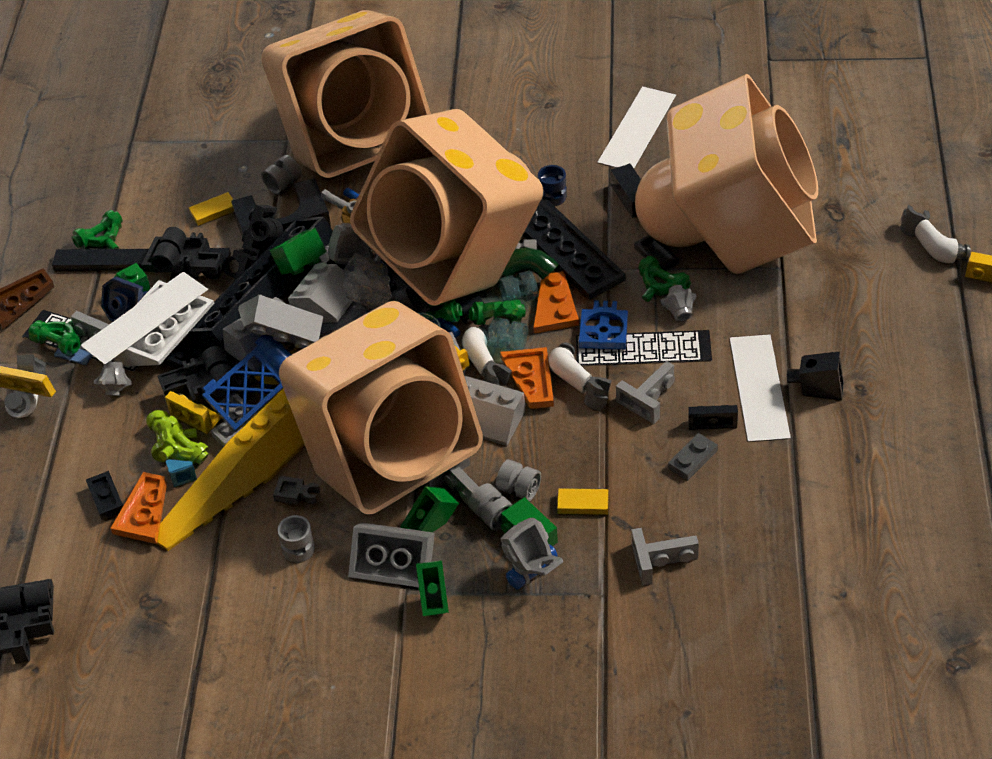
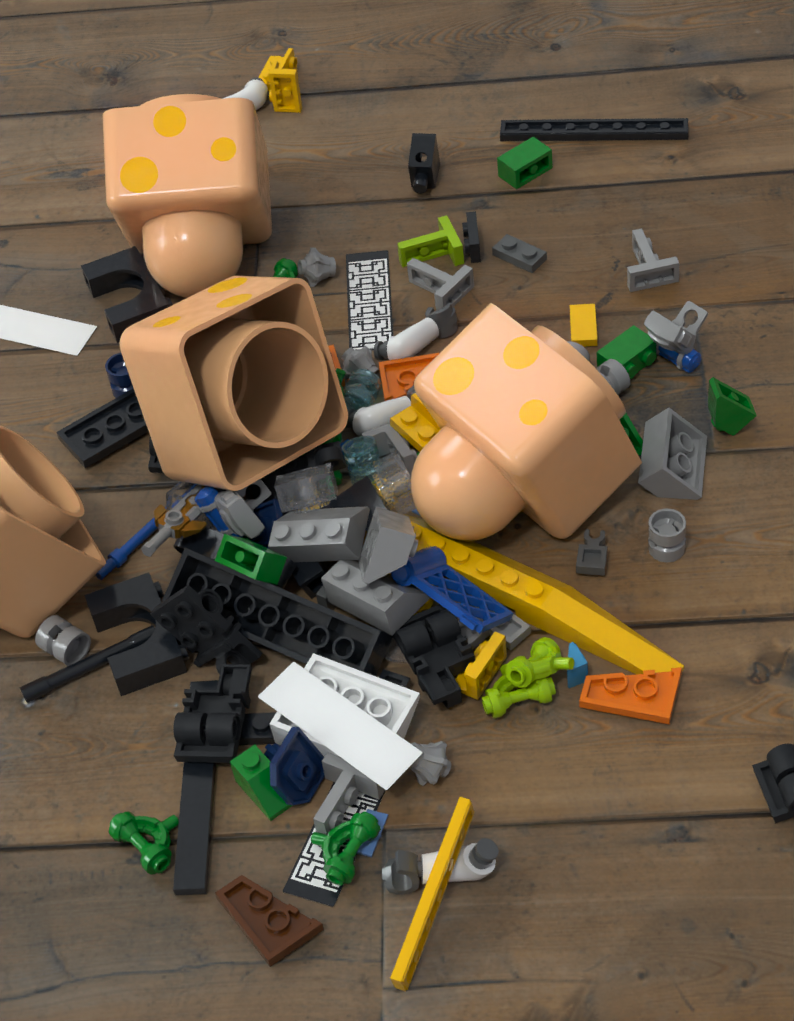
camera: 90 degrees left, 0 degrees up
(104, 495) = (614, 739): black plate -> none
(212, 208) = (109, 717): yellow tile -> none
(251, 174) = (47, 683): none -> black piece
(544, 333) = (358, 359): none -> light grey rock
(604, 314) = (347, 313): blue piece -> none
(706, 392) = (433, 245): none -> lime bracket
(759, 388) = (421, 216): white sticker -> none
(826, 460) = (524, 162): none -> green brick
(888, 530) = (595, 129): none -> black tile
(946, 263) = (284, 89): none -> yellow bracket

